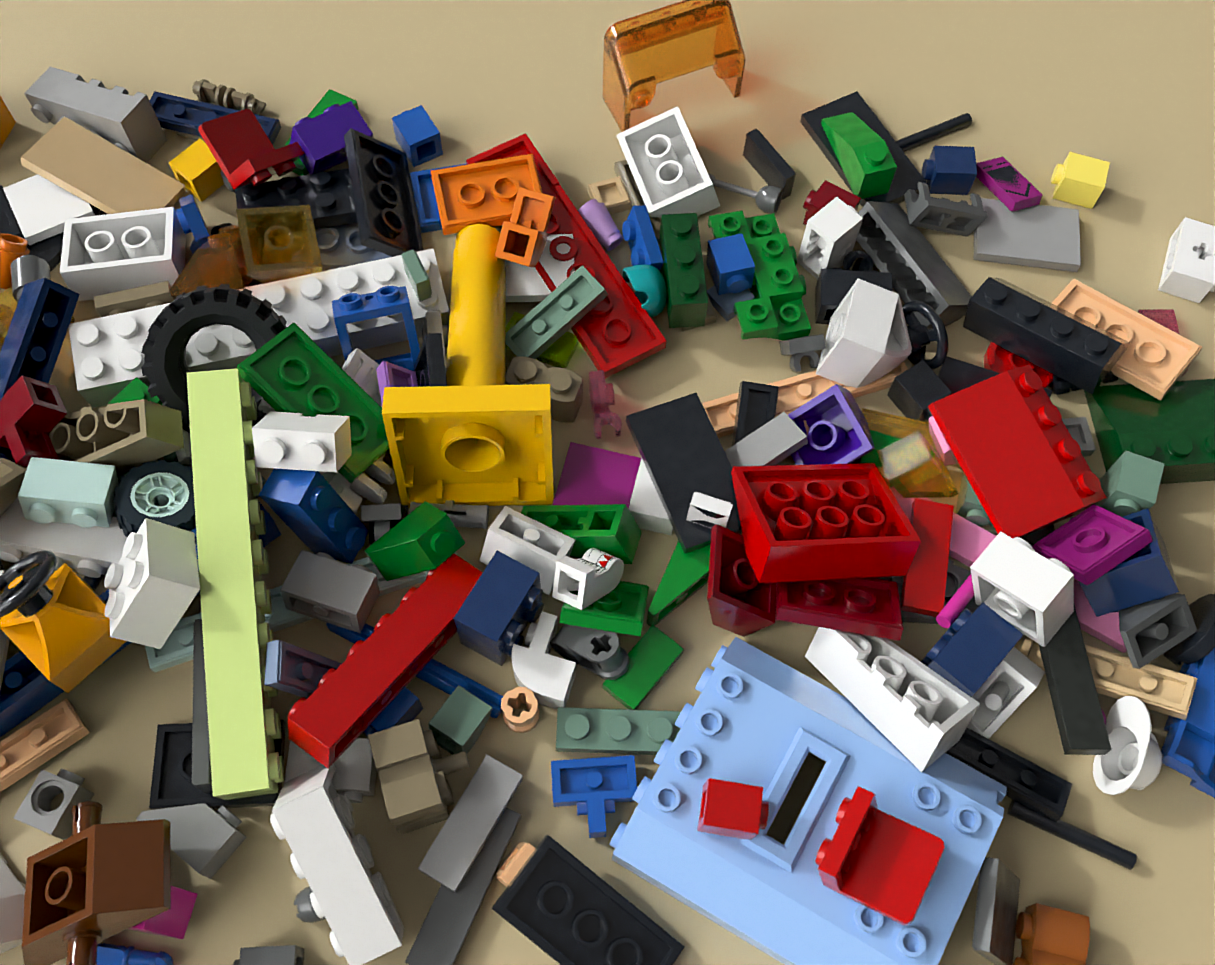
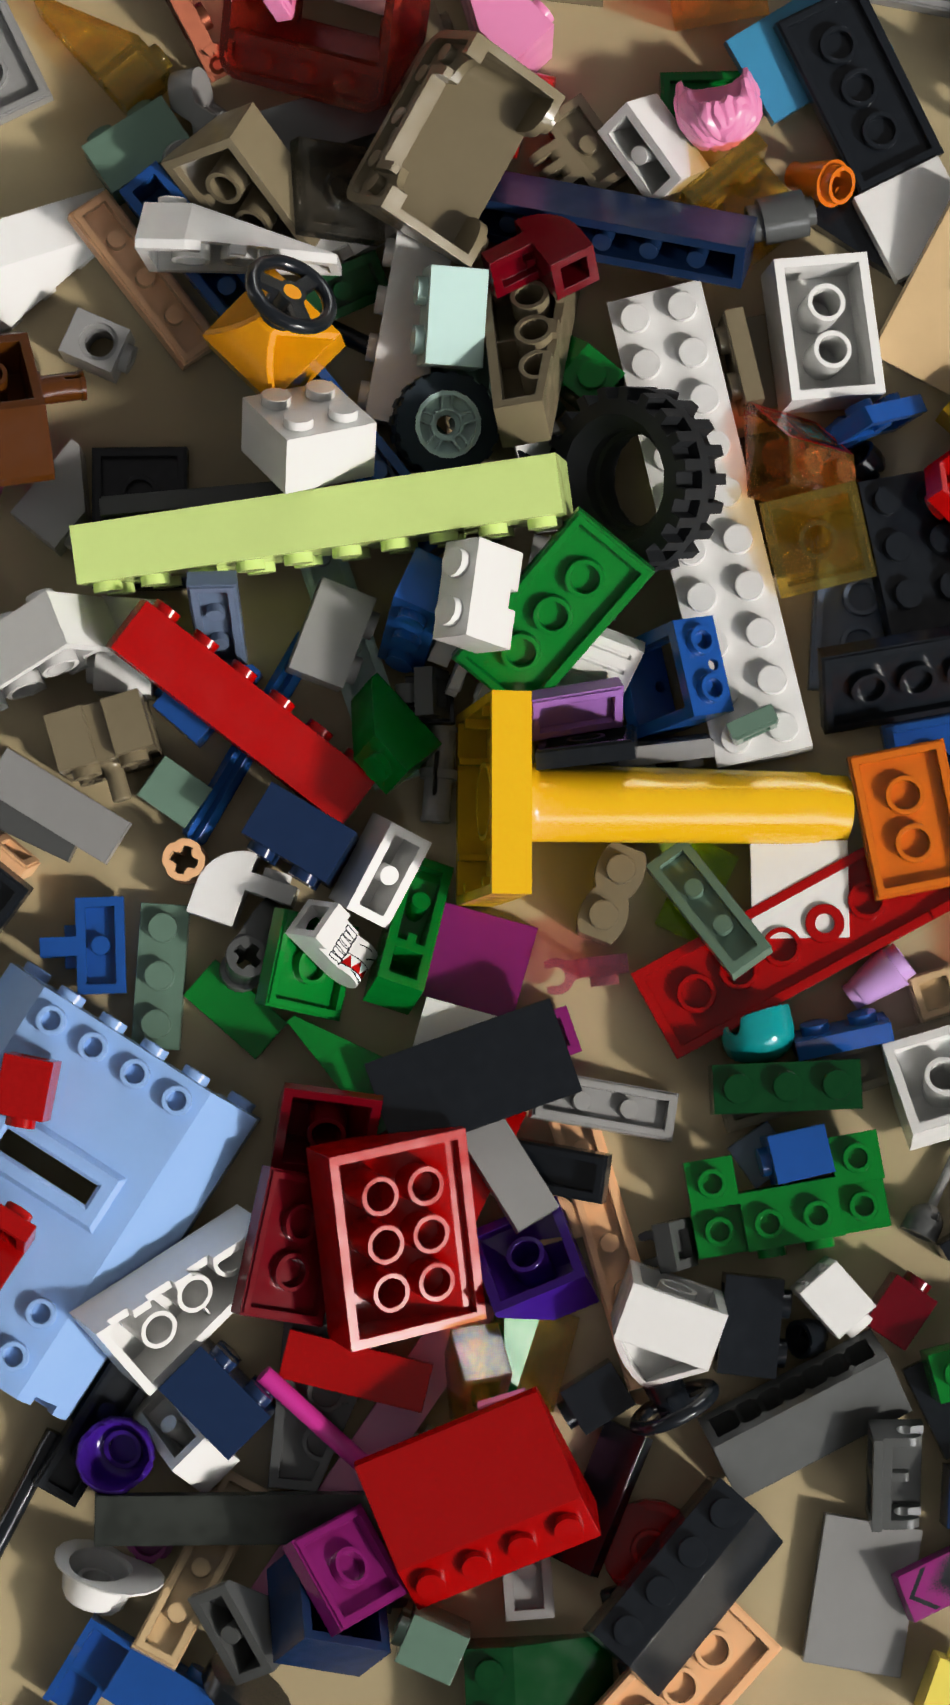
camera: 95 degrees right, 20 degrees up
(525, 235) = (829, 869): orange brick -> none
(706, 378) = (615, 1109): none -> light grey tile
(708, 510) = (401, 1093): white tile -> none
(1024, 587) = (286, 1470): white brick -> none
(1028, 741) = (115, 1455): none -> dark purple hair

